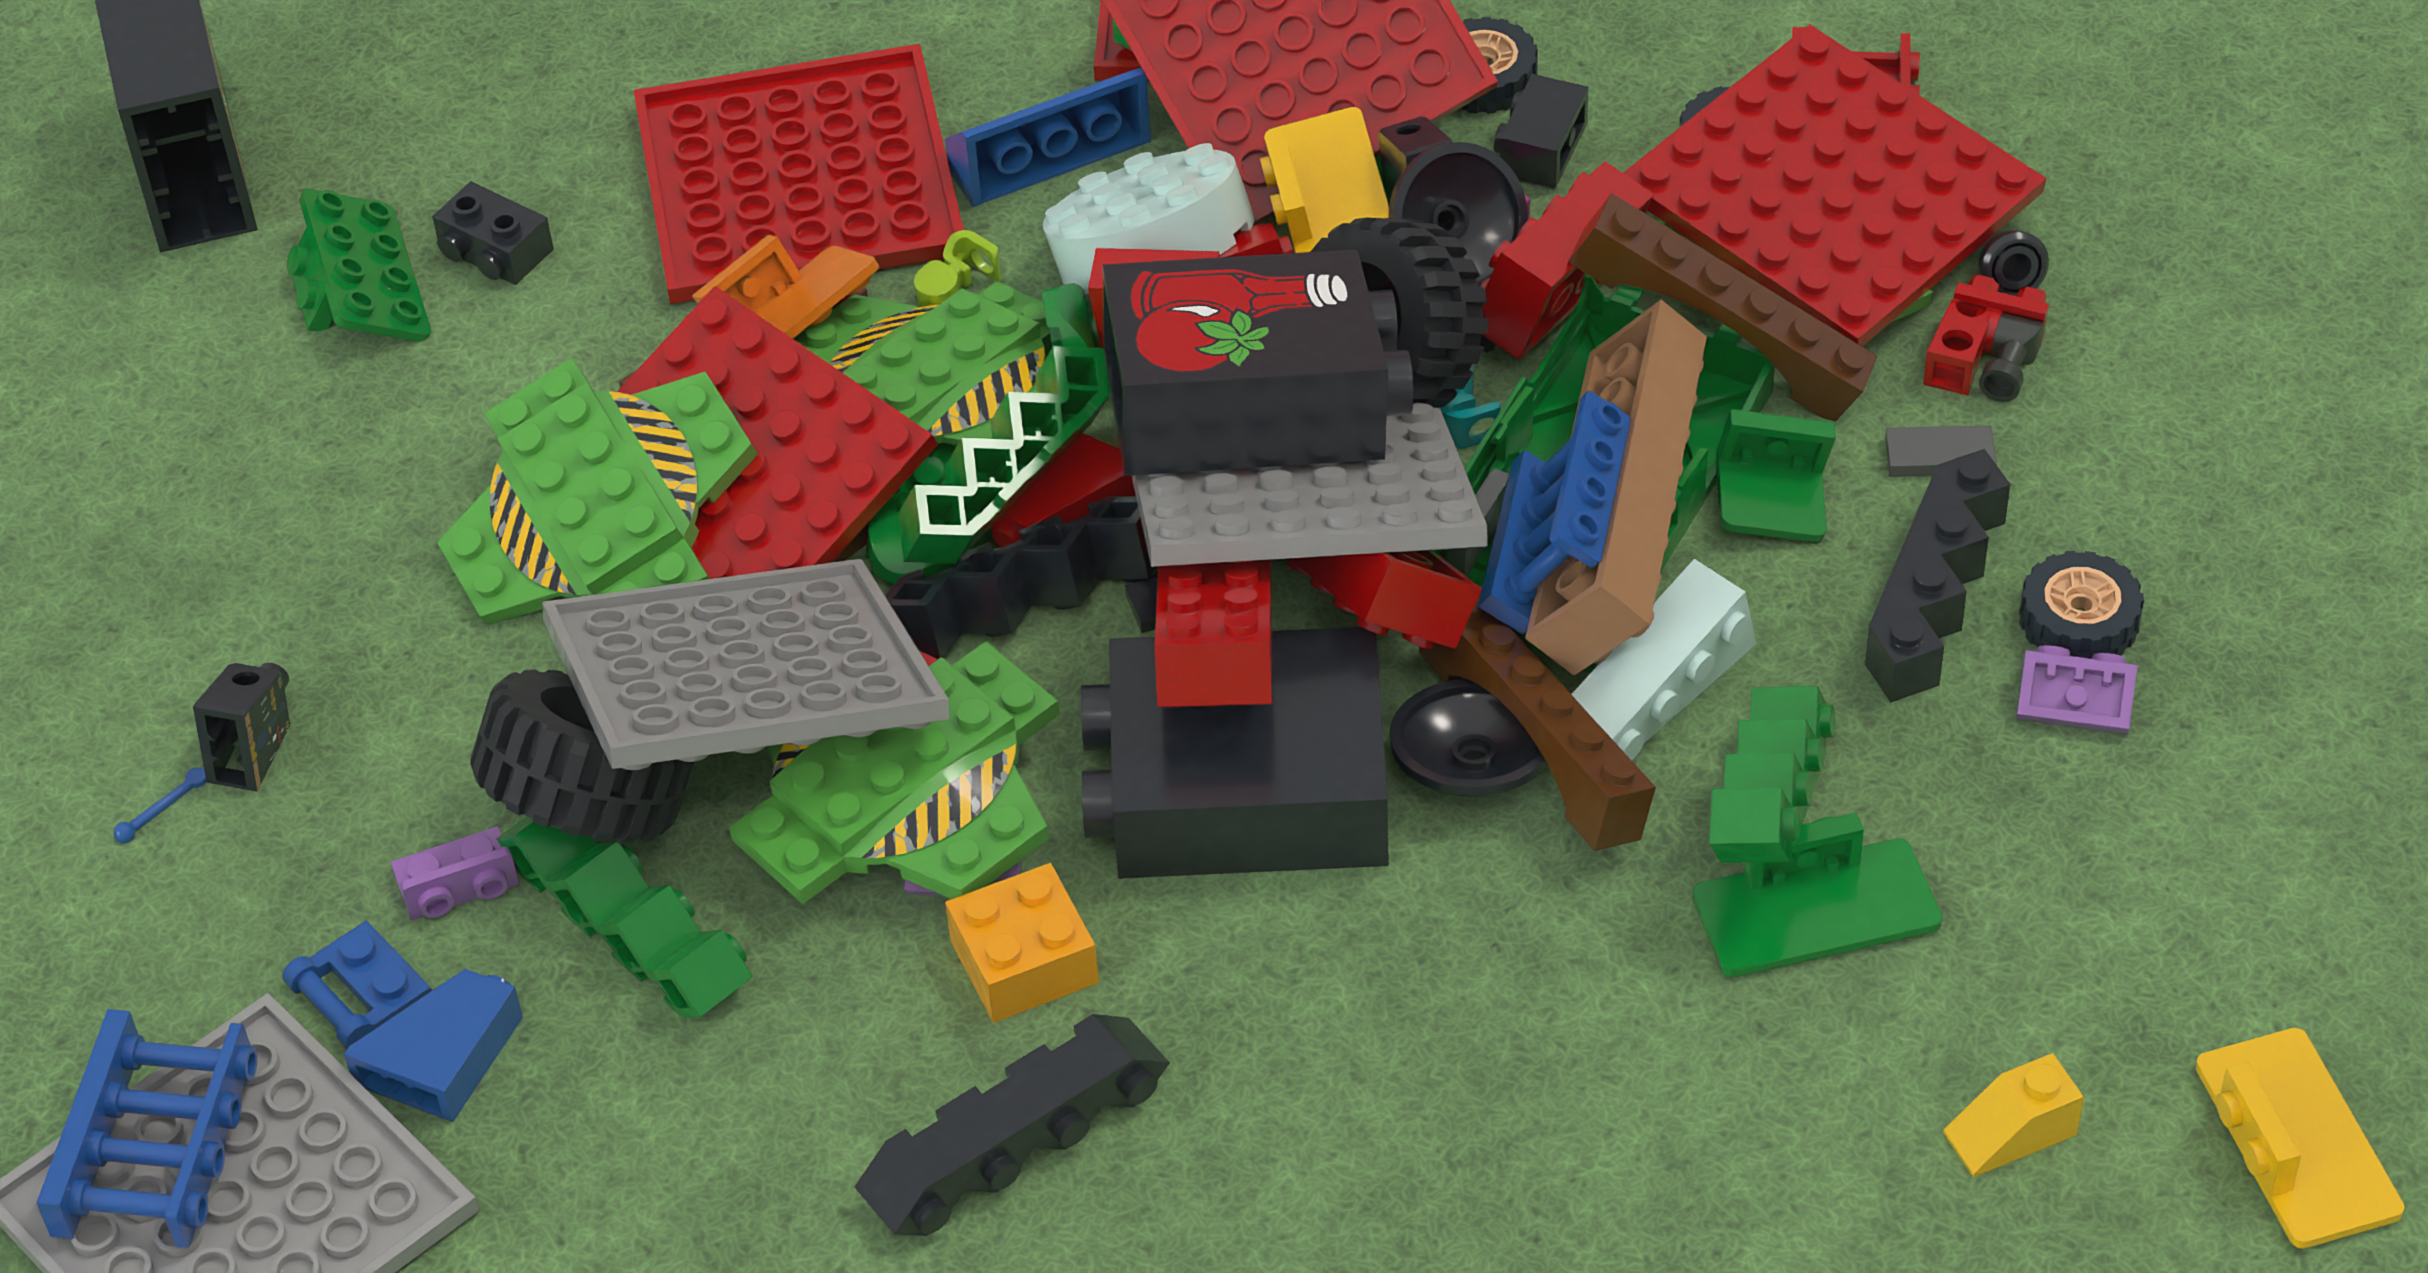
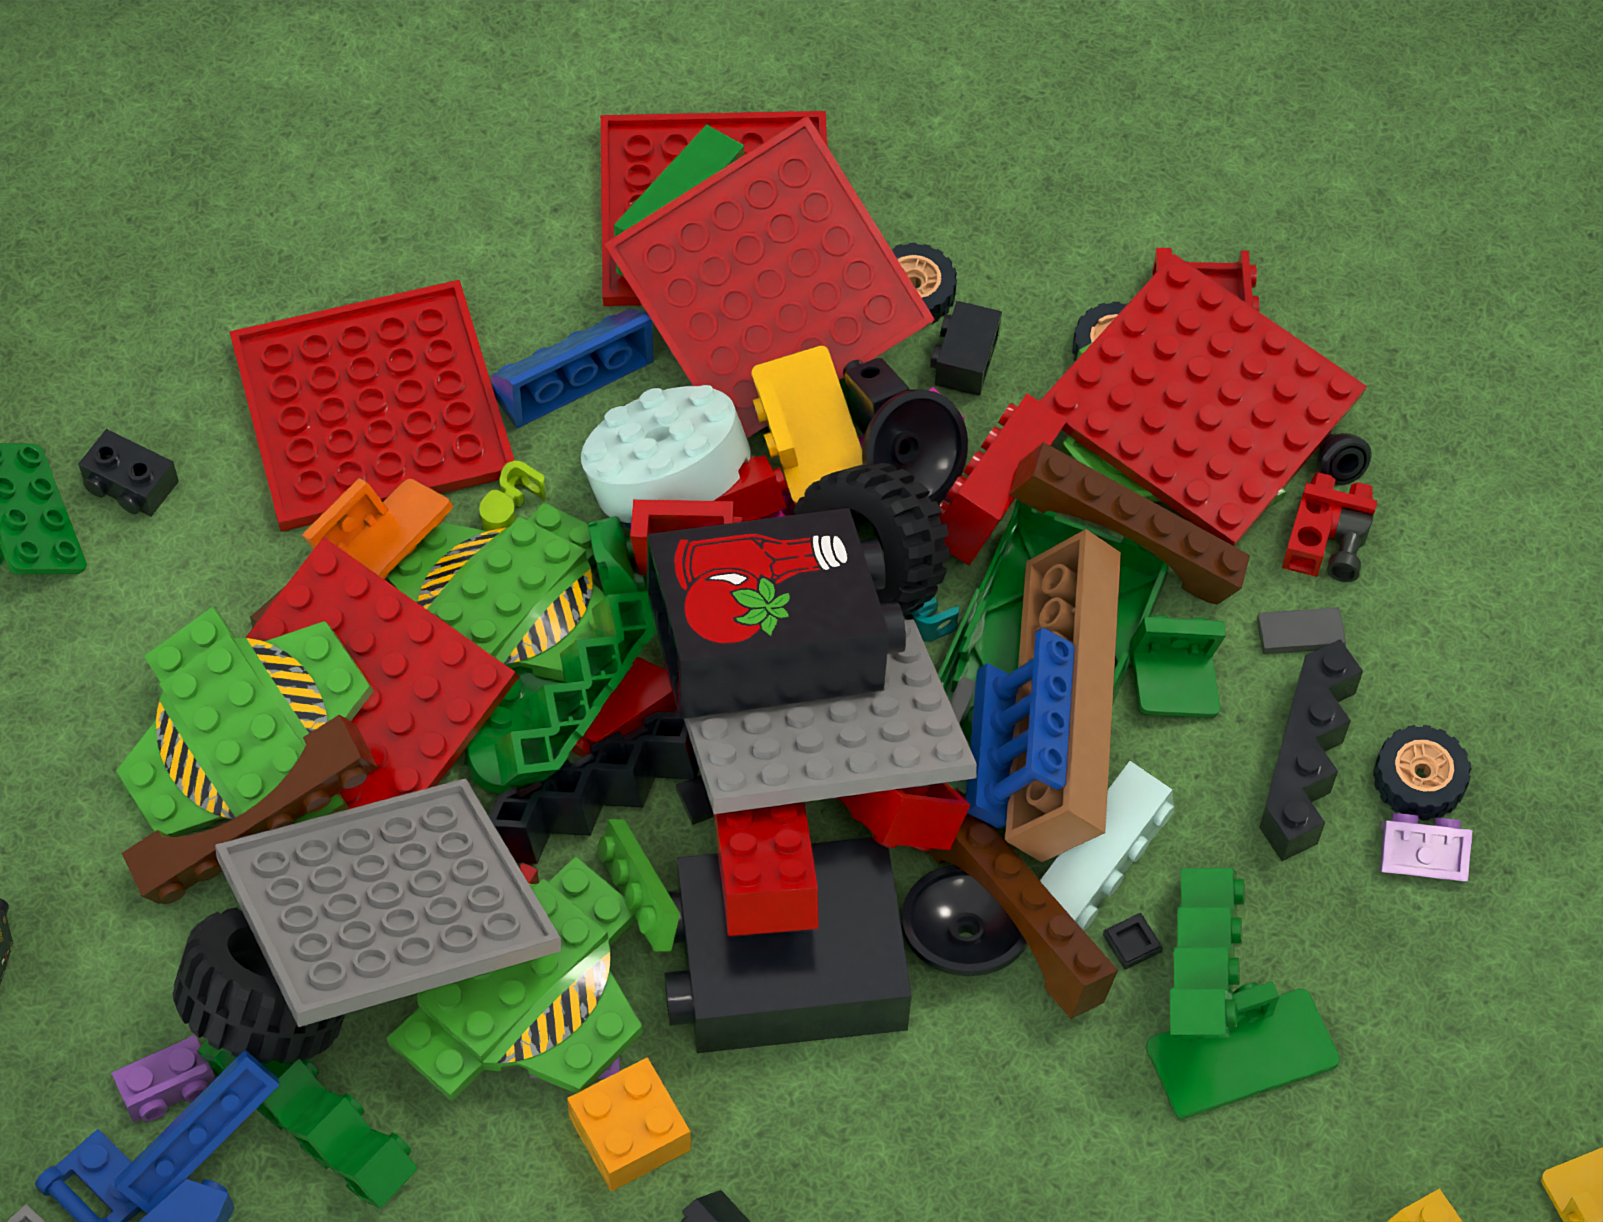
camera: 10 degrees left, 10 degrees up
(483, 910) = (197, 1132): none -> blue plate
(685, 524) = (330, 762): none -> reddish brown arch
(1061, 674) = (639, 884): none -> bright green plate
(1686, 779) = (1132, 941): none -> black tile

